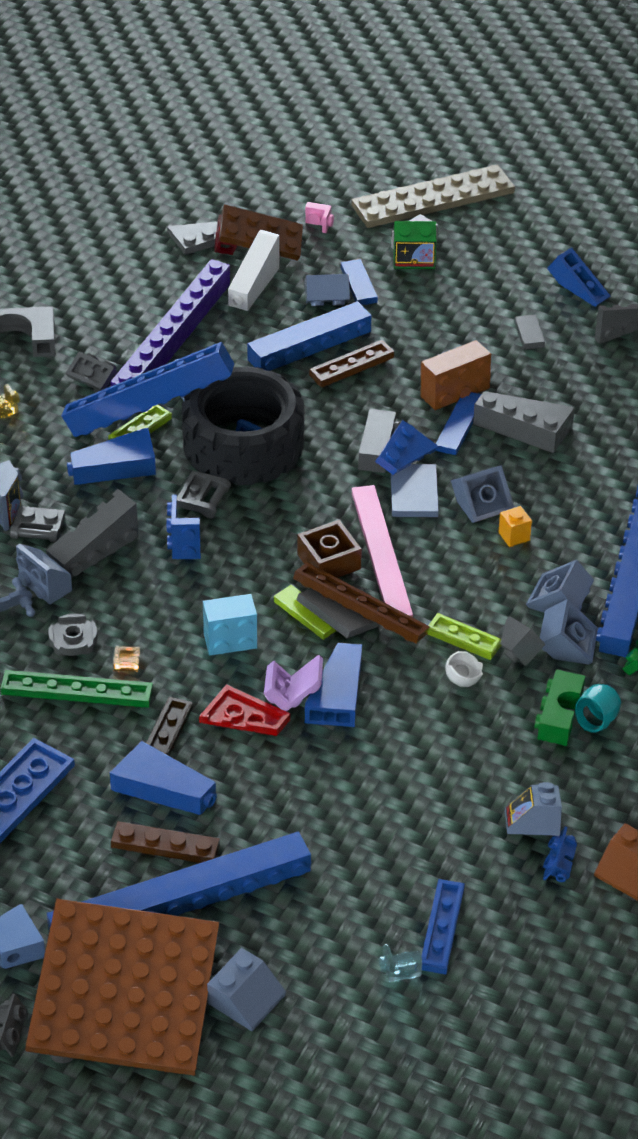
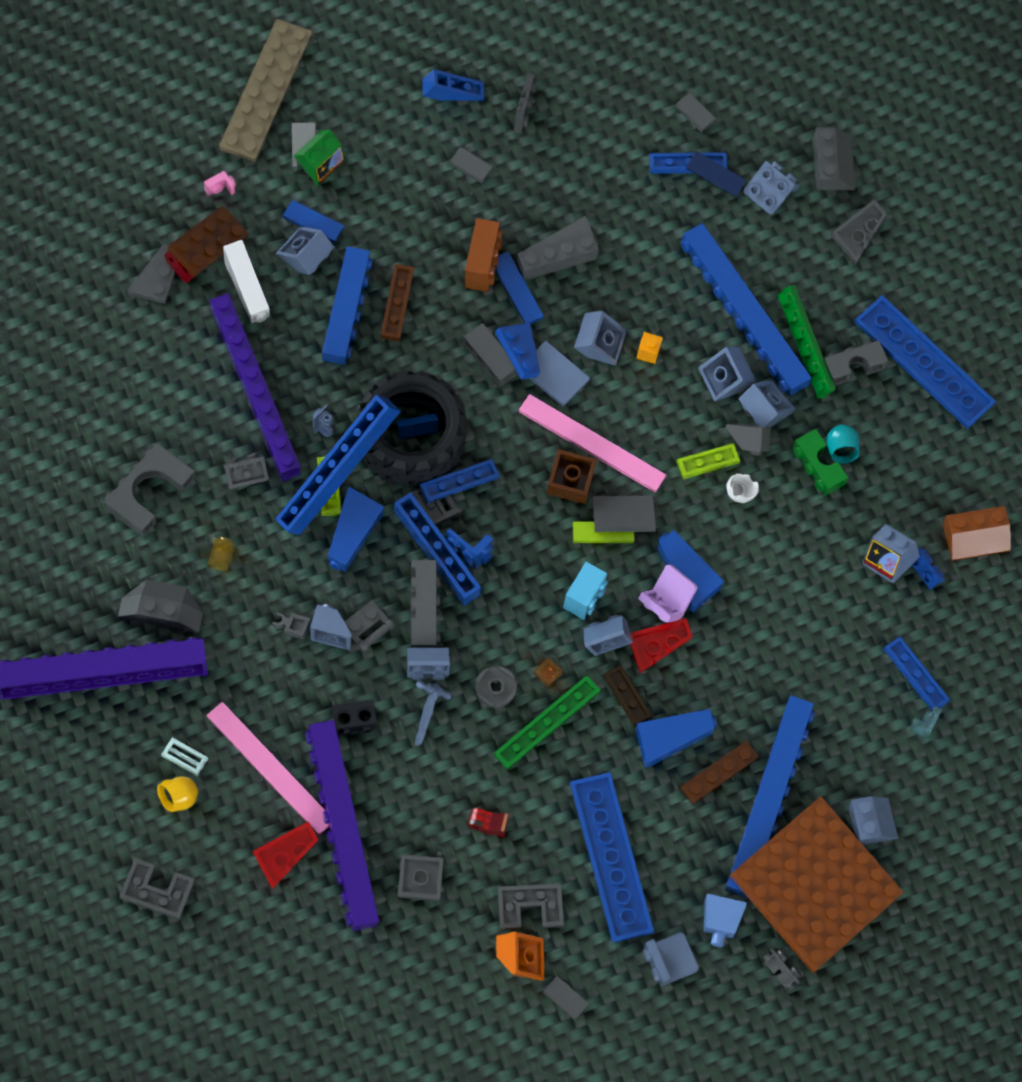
camera: 55 degrees left, 25 degrees up
(153, 517) = (437, 548): none -> blue brick
(203, 667) = (607, 635): none -> sand blue slope
(238, 491) = (459, 481): none -> blue tile
(361, 602) = (635, 498): reddish brown plate -> none

